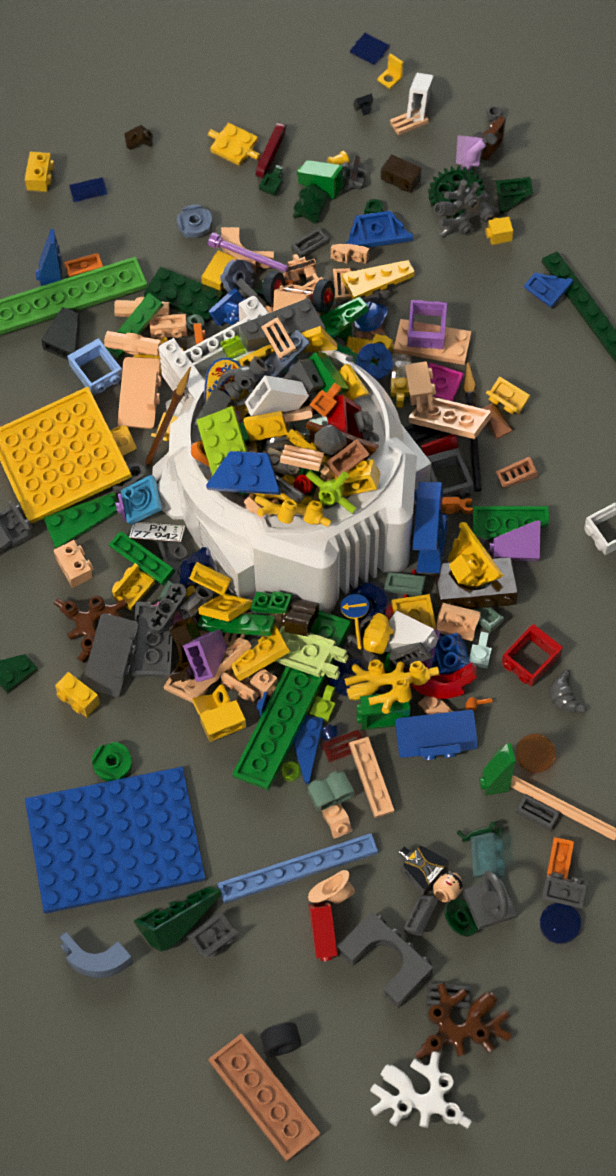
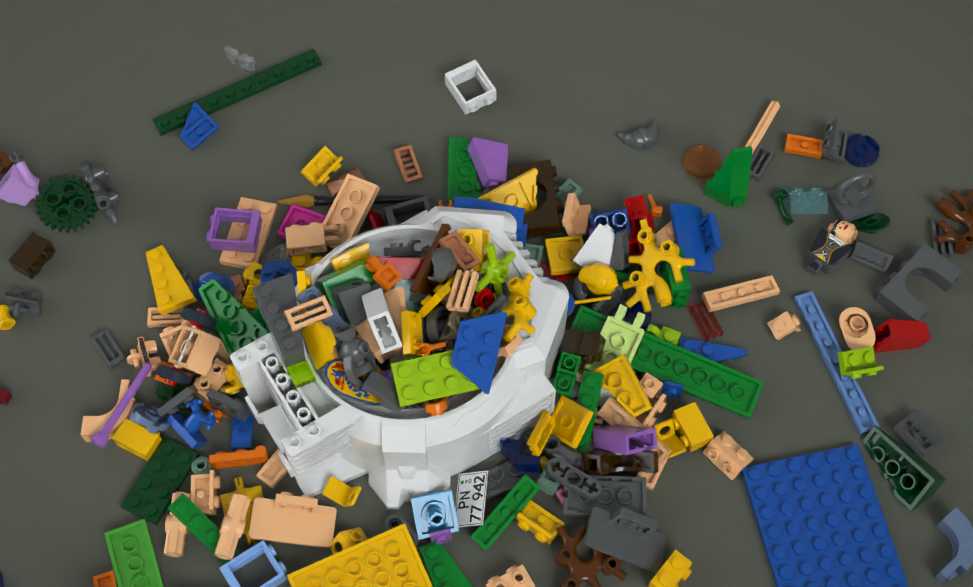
camera: 90 degrees left, 0 degrees up
(110, 751) = (731, 543): green plate -> none
(177, 396) = (347, 430): reddish brown piece -> none
(194, 229) = (69, 477): sand blue plate -> none
(196, 755) = (727, 455): none -> light nougat bracket
(248, 435) = (426, 348): none -> orange hand
(272, 182) = (20, 386): dark green plate -> none
(290, 883) = (857, 362): none -> lime bracket
(292, 777) = (738, 361): clear neon green bush -> none
(310, 203) = (55, 347): dark green bracket -> none
(322, 175) = (25, 332): green slope -> none
(329, 732) = (695, 330): clear blue plate -> none
(330, 791) = (757, 329): sand green brick -> none
(344, 252) = (128, 311): light nougat slope -> none
(373, 206) = (71, 284): dark green tile -> none
(378, 230) = (102, 281): blue wing -> none
(466, 569) = (527, 199): yellow brick -> none
(480, 653) = (602, 202): light aqua plate -> none
(499, 230) = (120, 166): yellow brick -> none
(513, 192) = (72, 153): dark green wing -> none
(543, 641) = (619, 150): red window -> none

